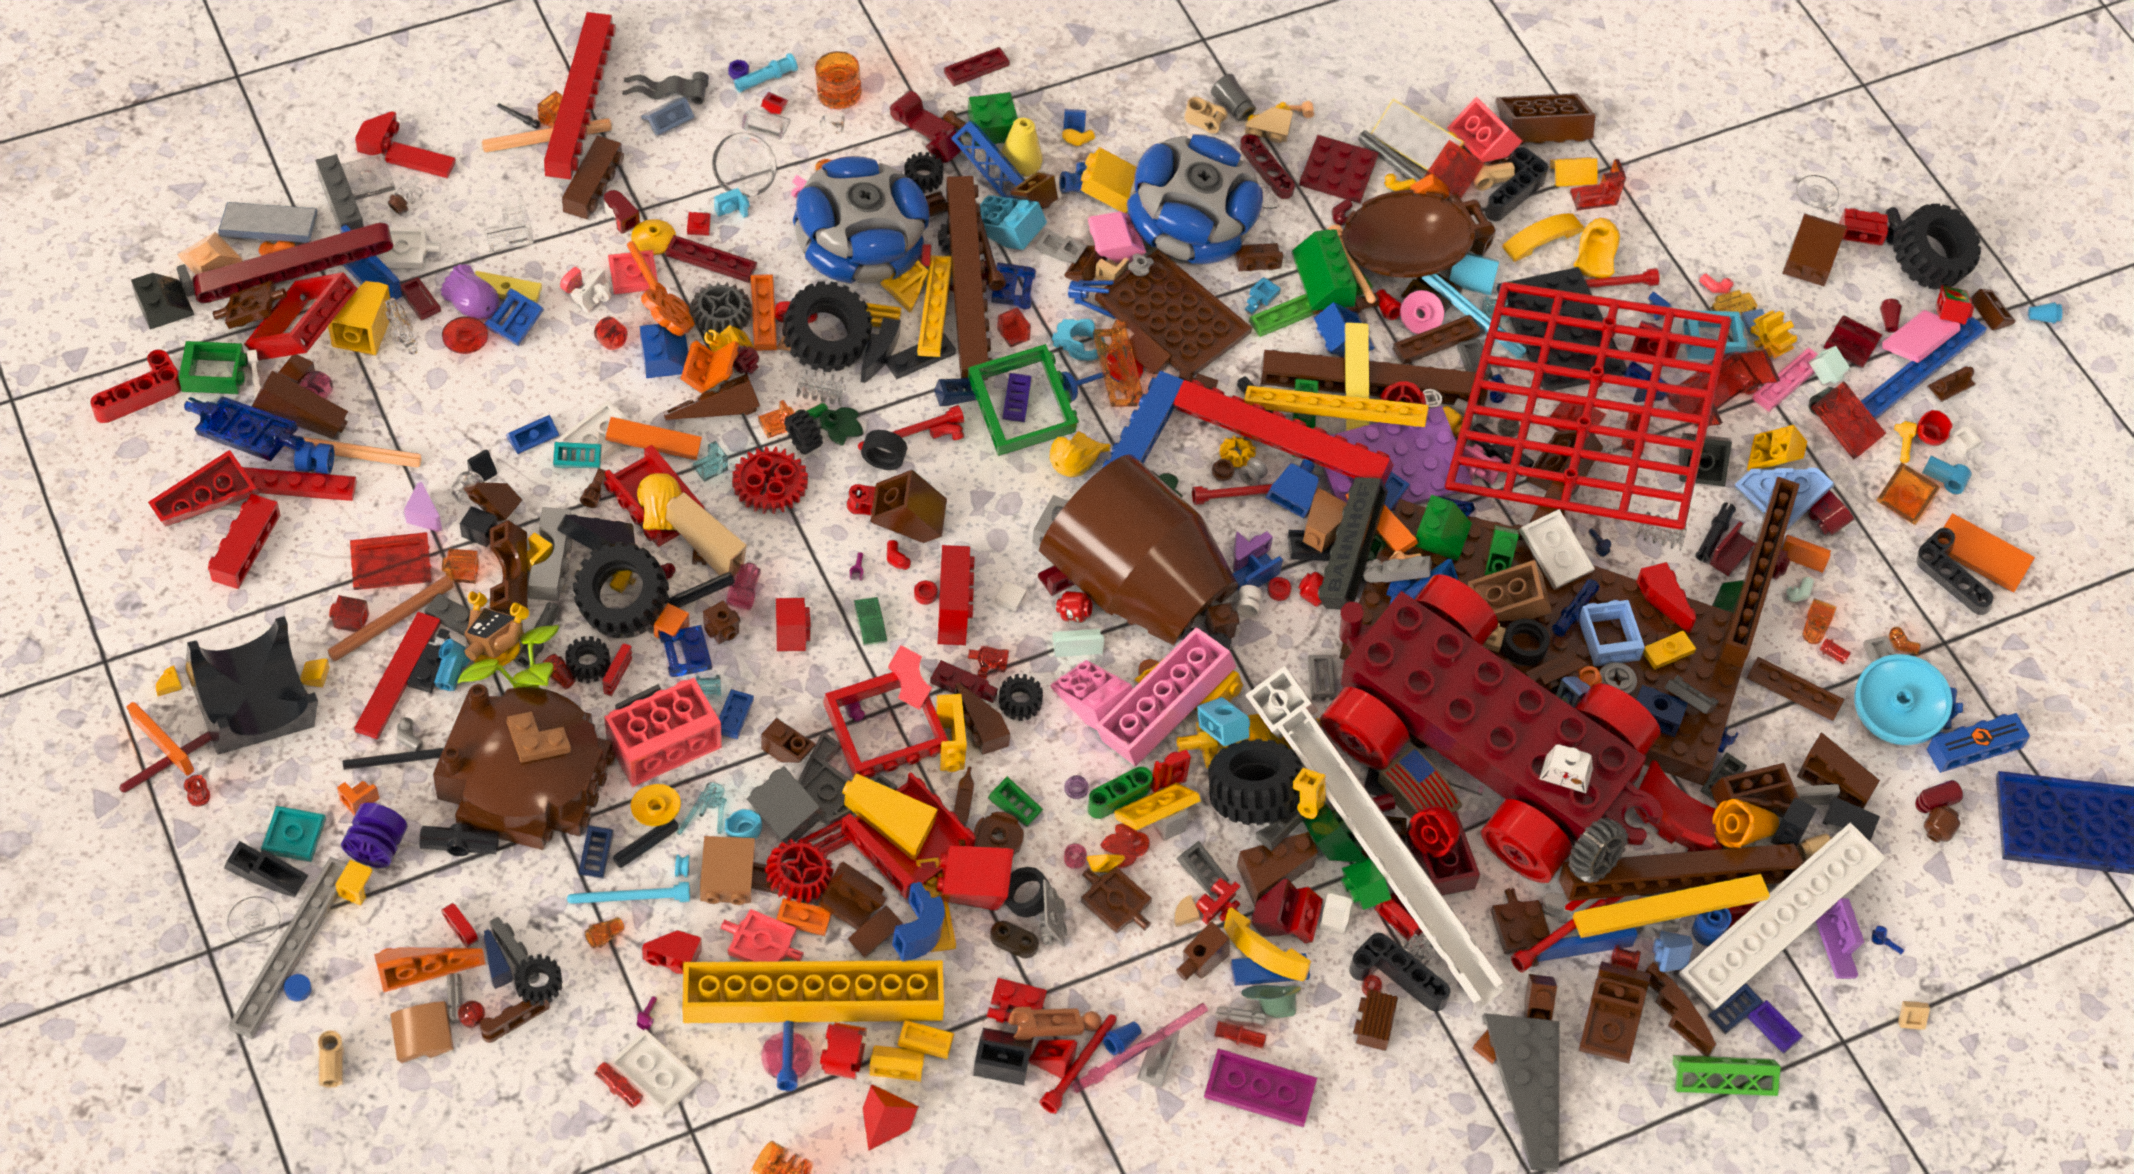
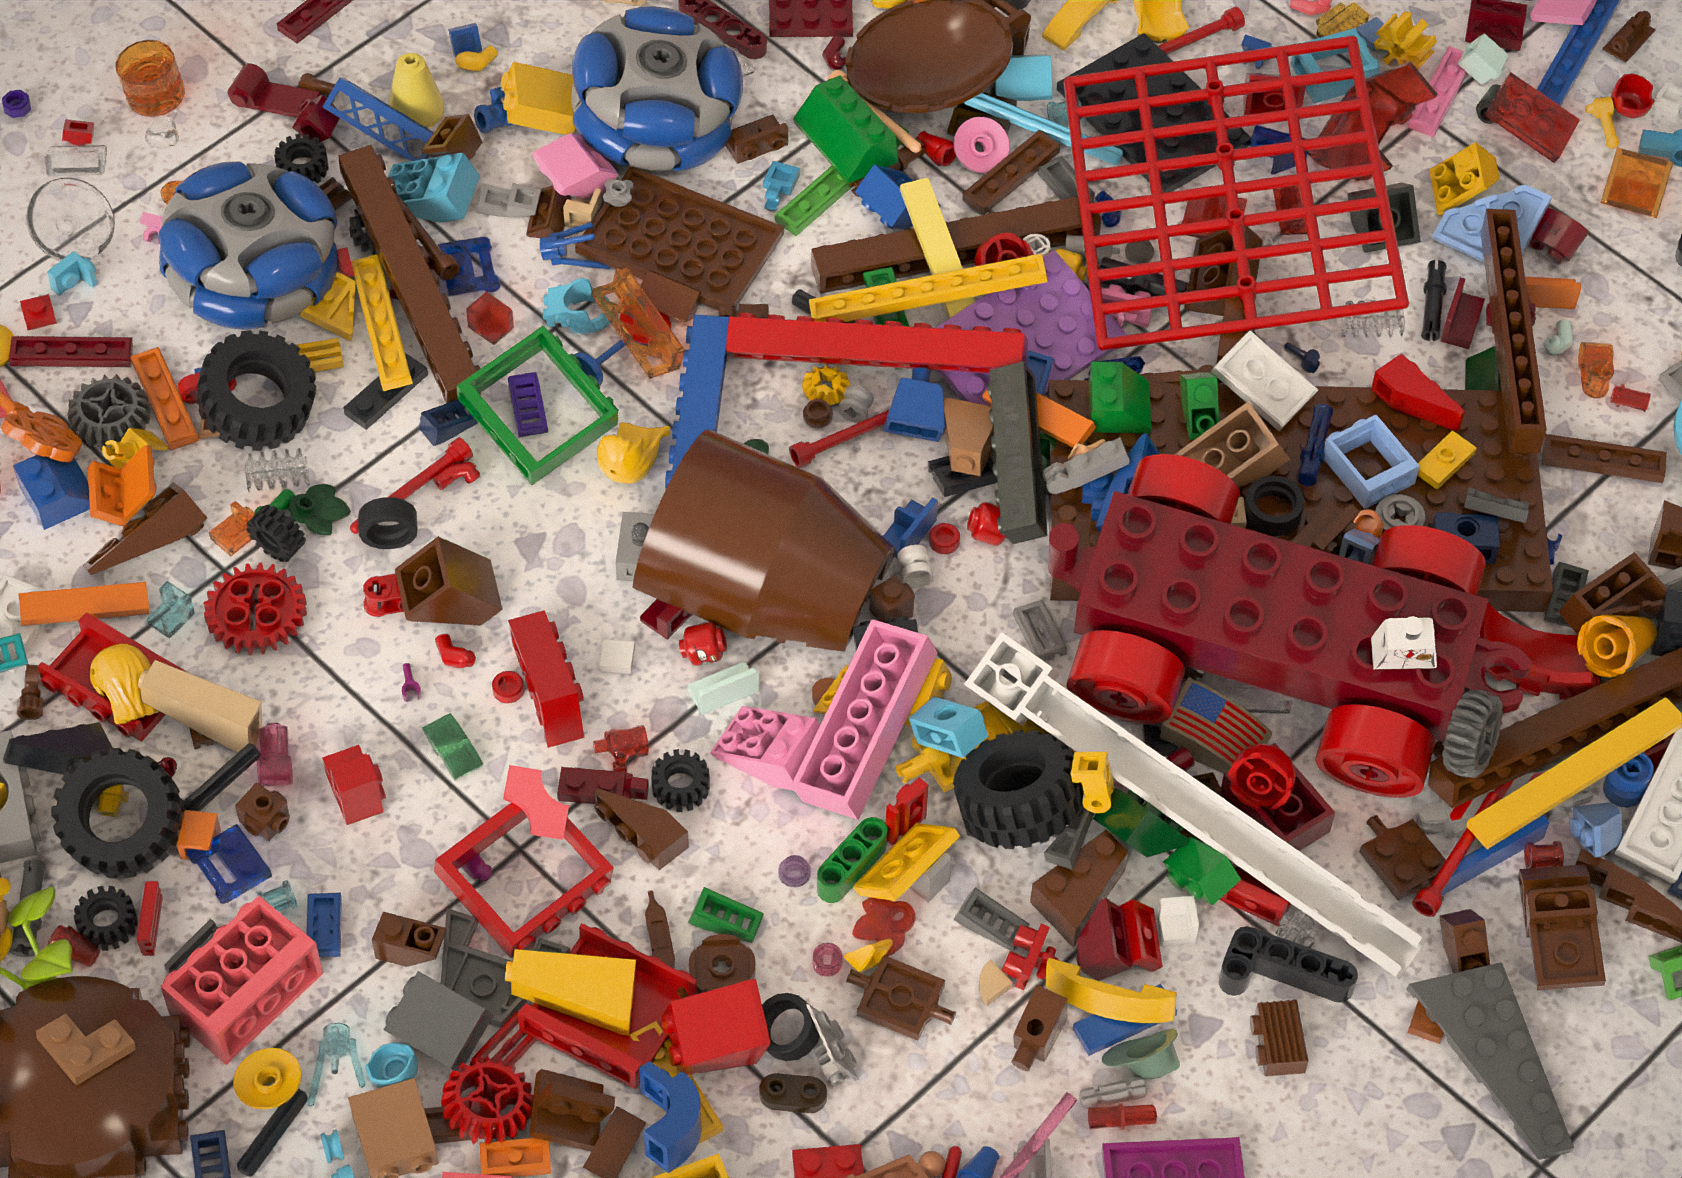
camera: 15 degrees left, 0 degrees up
(746, 360) = (167, 466): dark red gear -> none
(773, 70) = (63, 89): medium azure pin -> none
(880, 347) = (332, 396): black slope -> none
(950, 713) = (606, 833): yellow panel -> none
(993, 115) = (364, 62): green brick -> none
(1243, 549) = (883, 503): medium lavender slope -> none
(1366, 982) = (1248, 995): clear red hinge -> none

